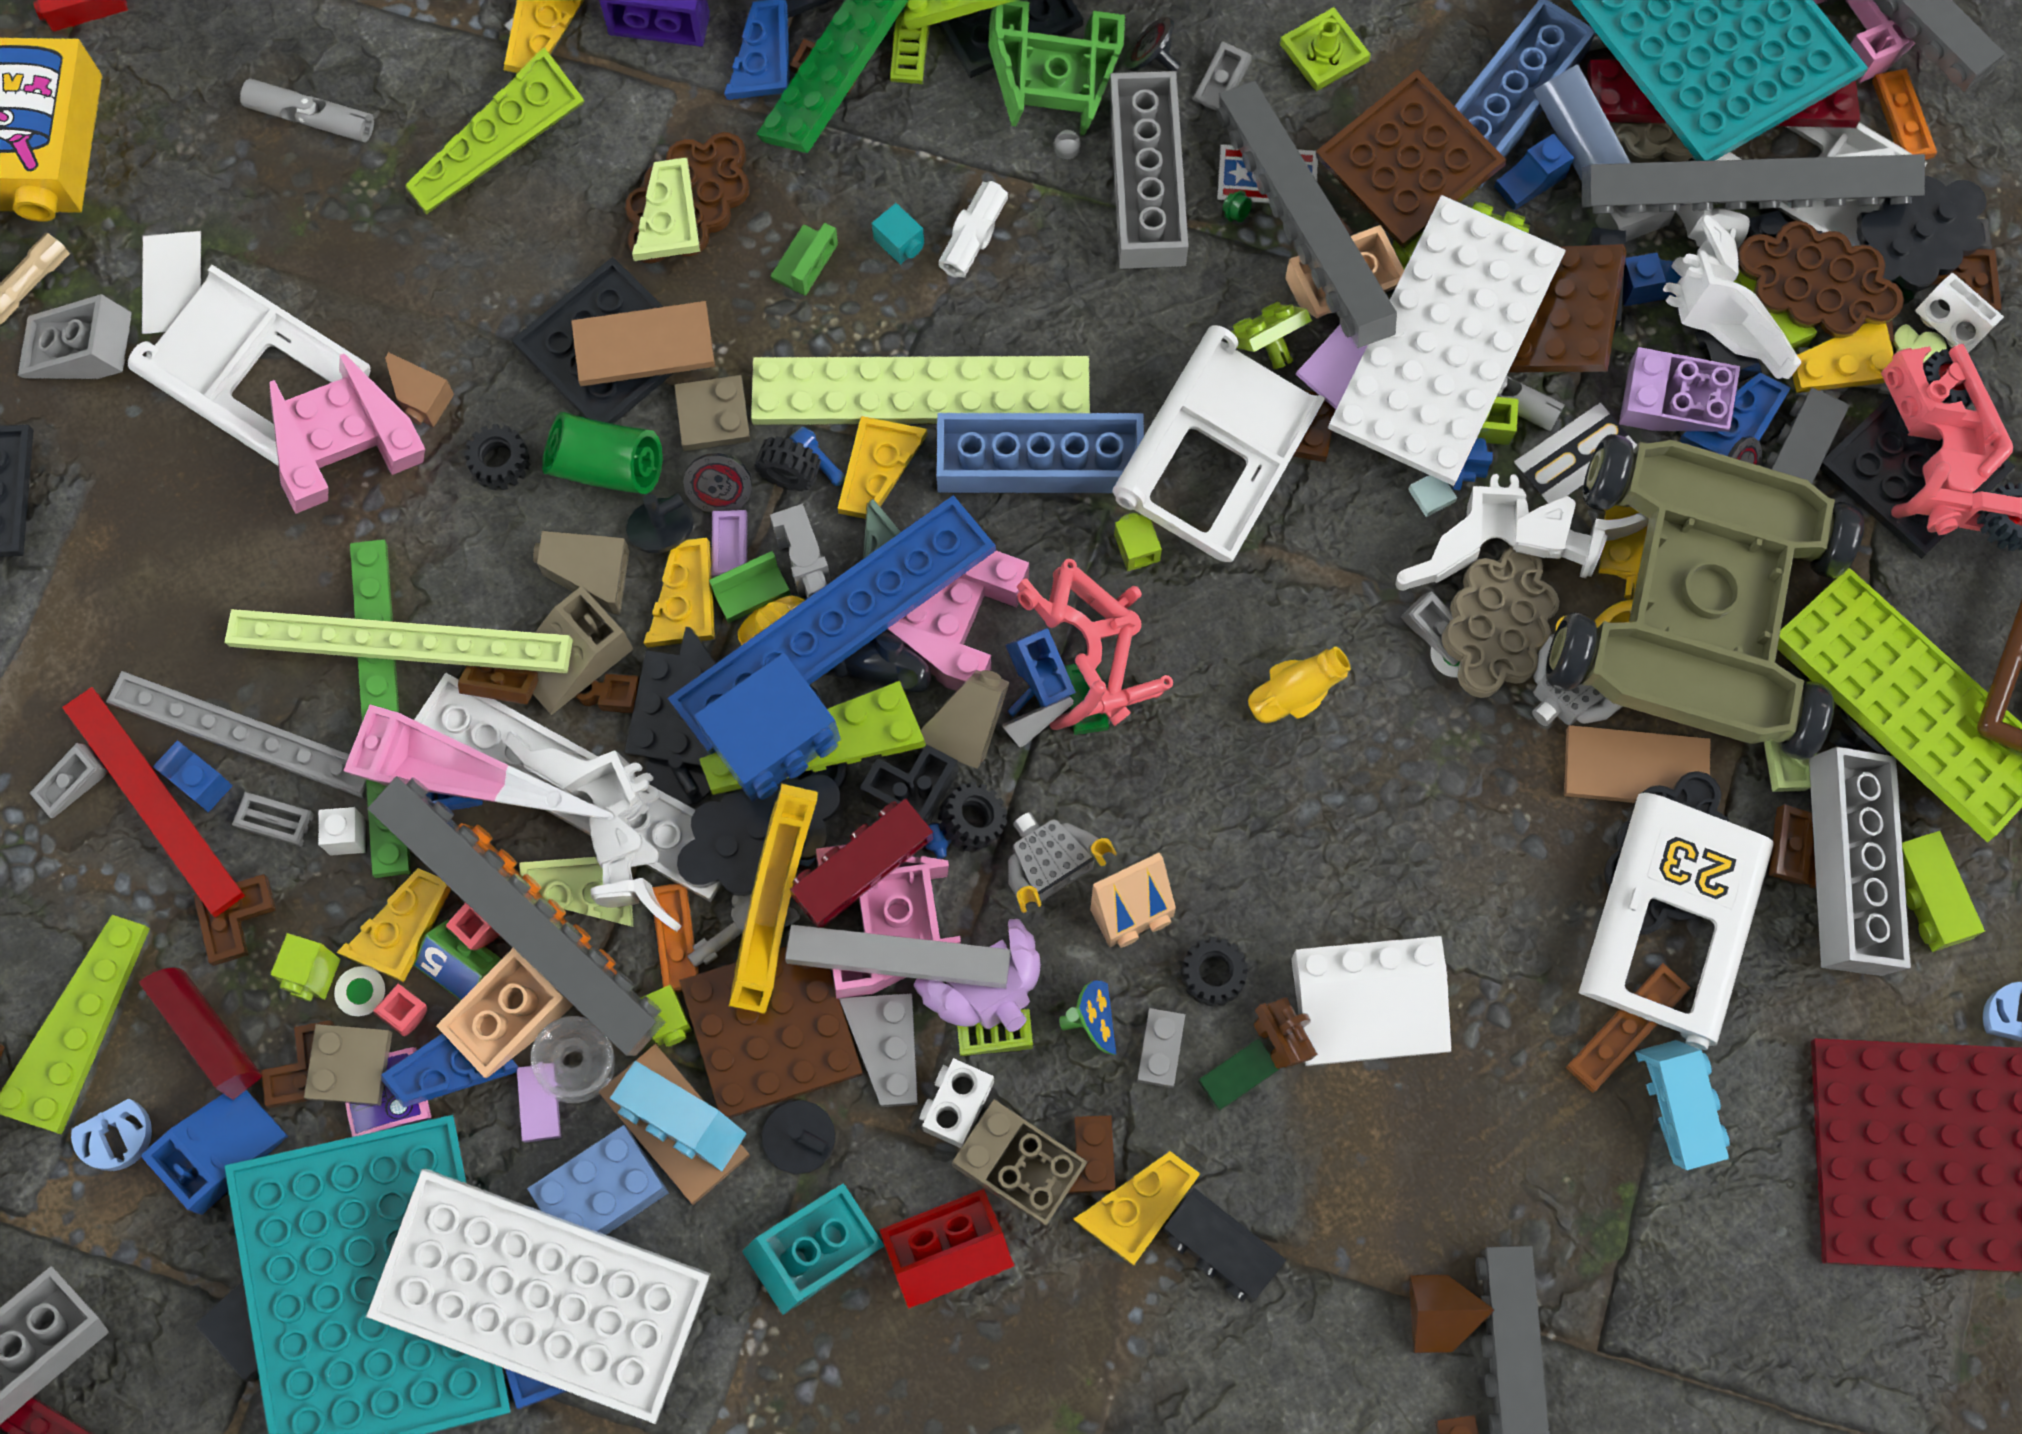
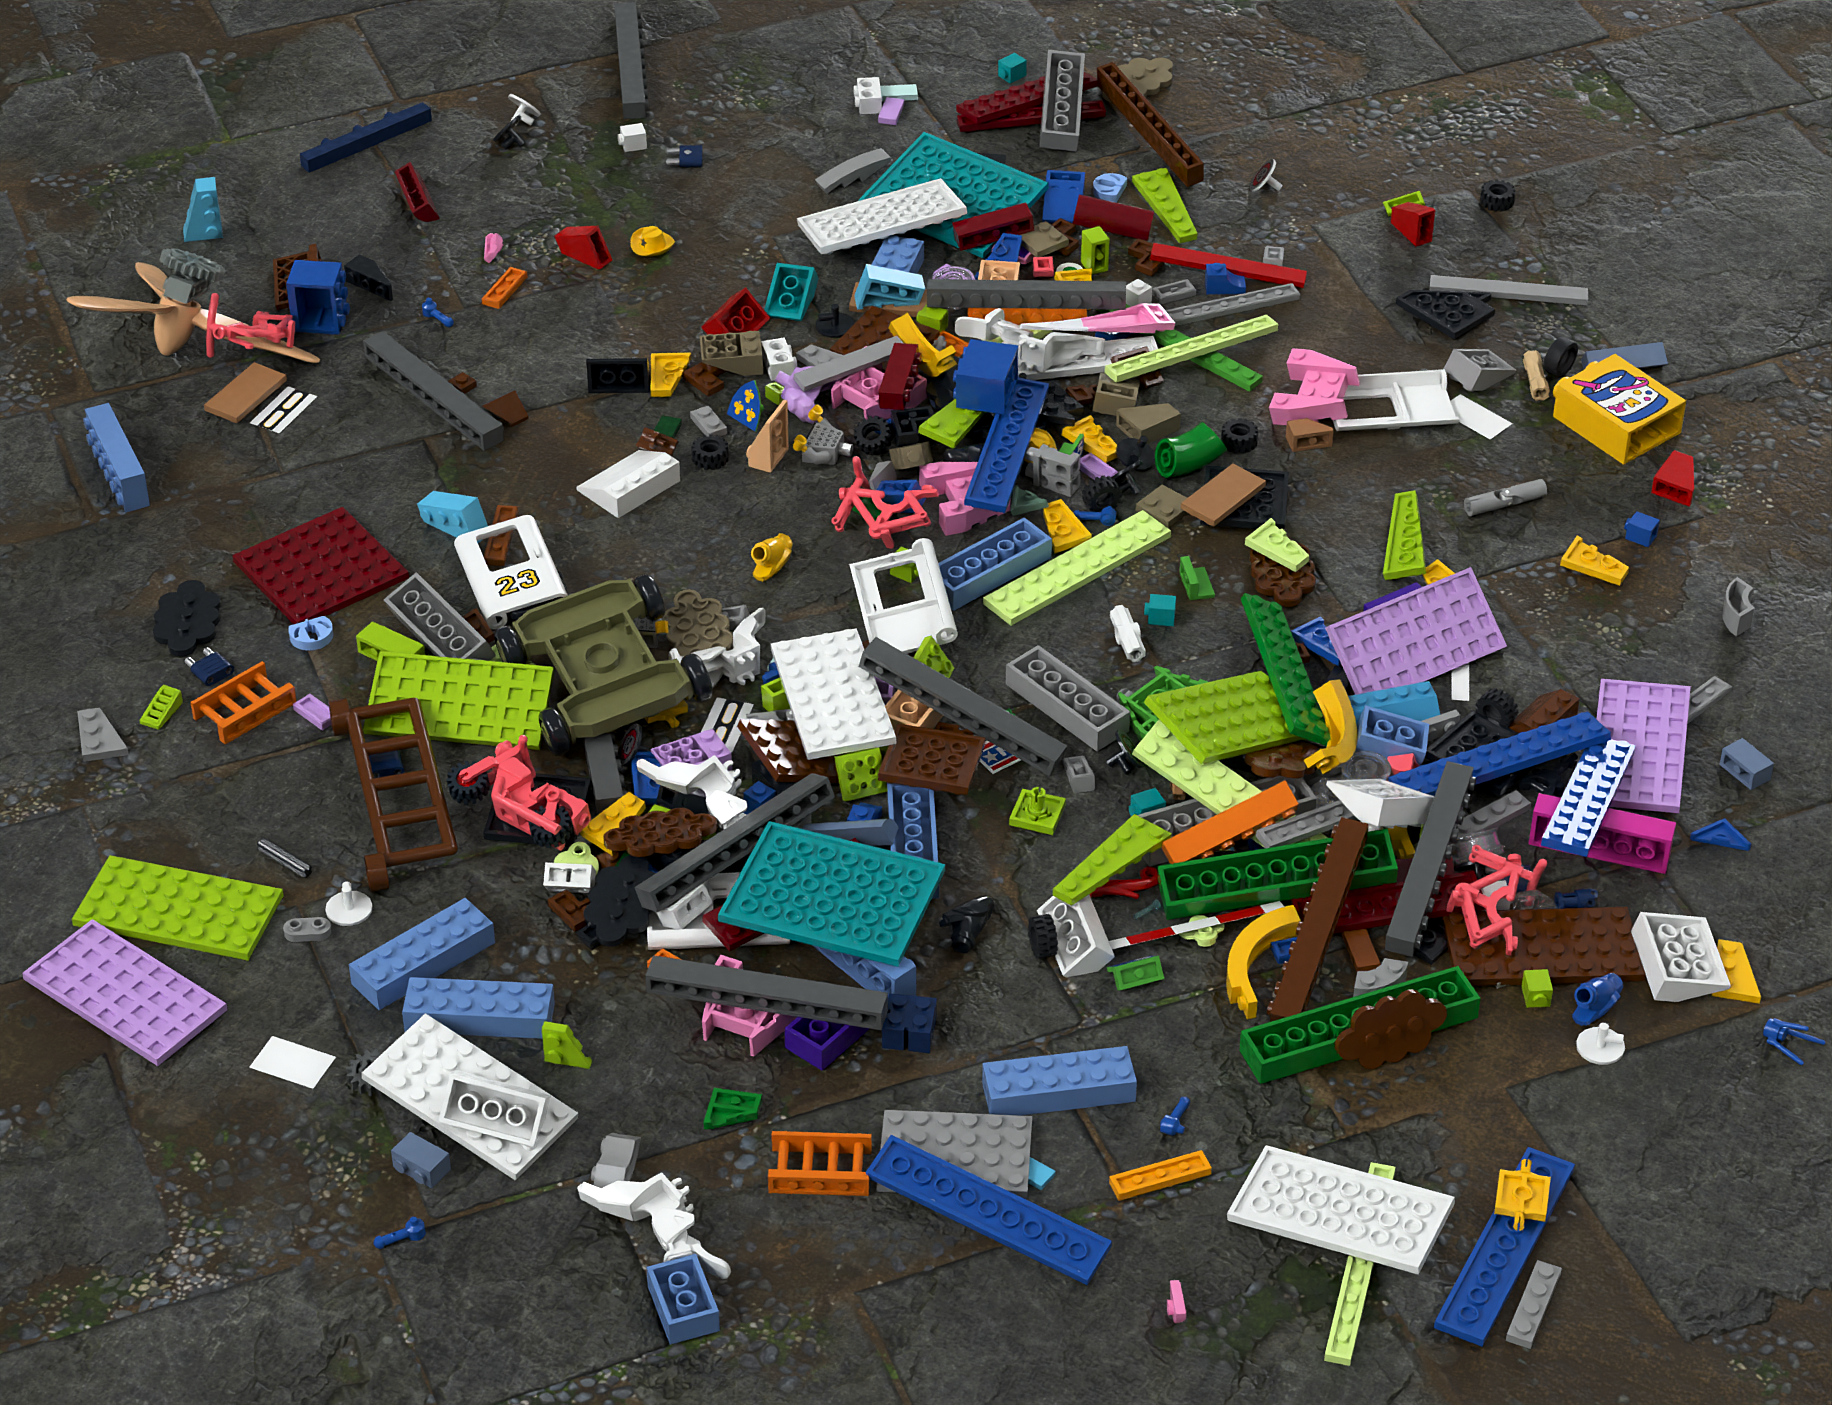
camera: 140 degrees right, 30 degrees down
(398, 1131) = (990, 226): none -> dark red brick

